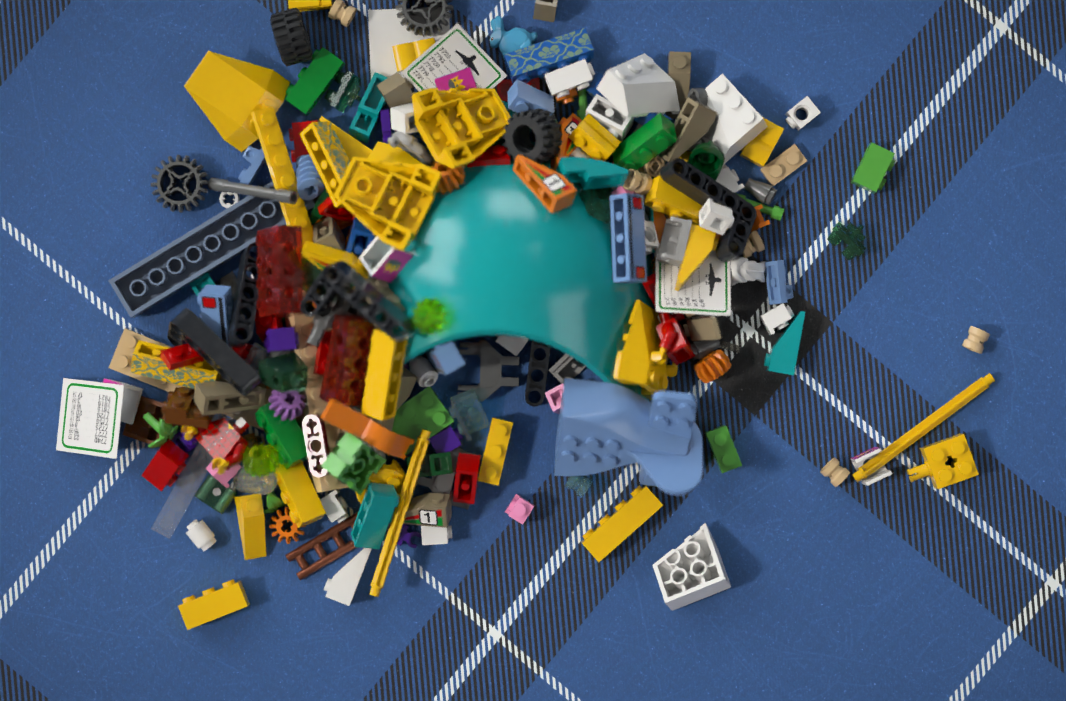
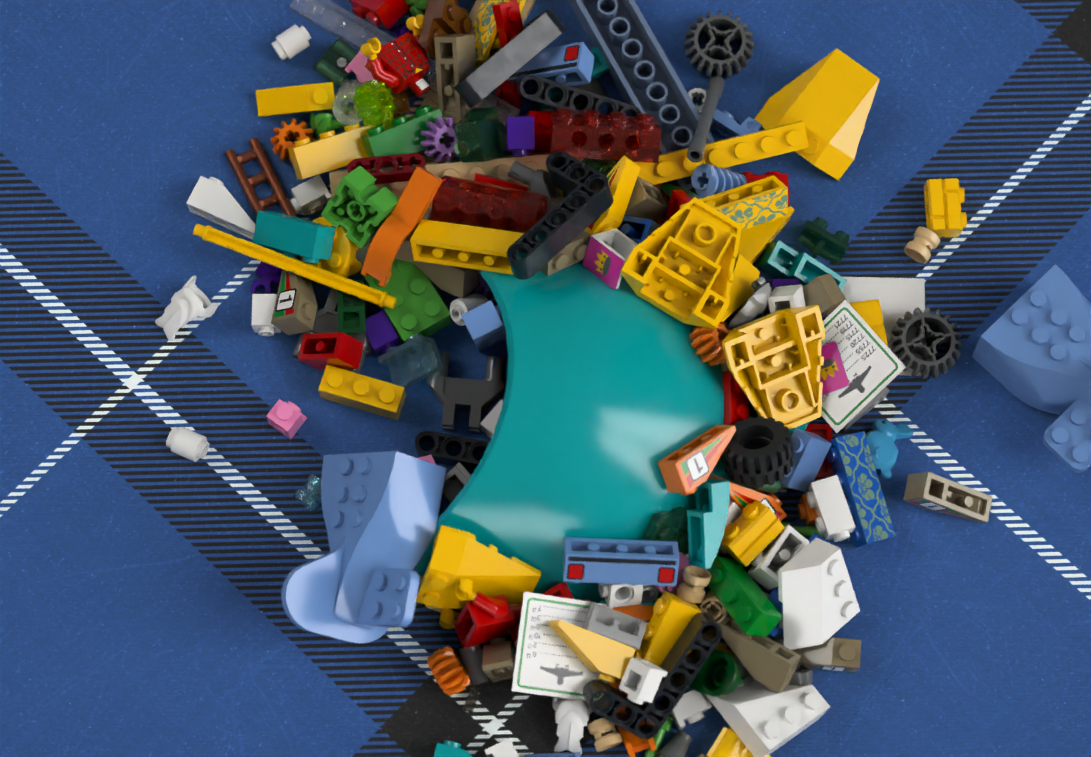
camera: 95 degrees right, 15 degrees down
(213, 604) = (206, 50): yellow brick -> none
(291, 36) = (893, 178): black tyre -> none
(314, 81) = (837, 206): green brick -> none
(427, 324) = (536, 295): clear neon green gear -> none
(435, 597) = (185, 307): none -> white hair
(545, 584) = (187, 443): none -> white brick
(621, 523) = (254, 541): yellow brick -> none
(691, 570) = (185, 628): white wedge -> none
(723, 449) = (340, 679): bright green brick -> none

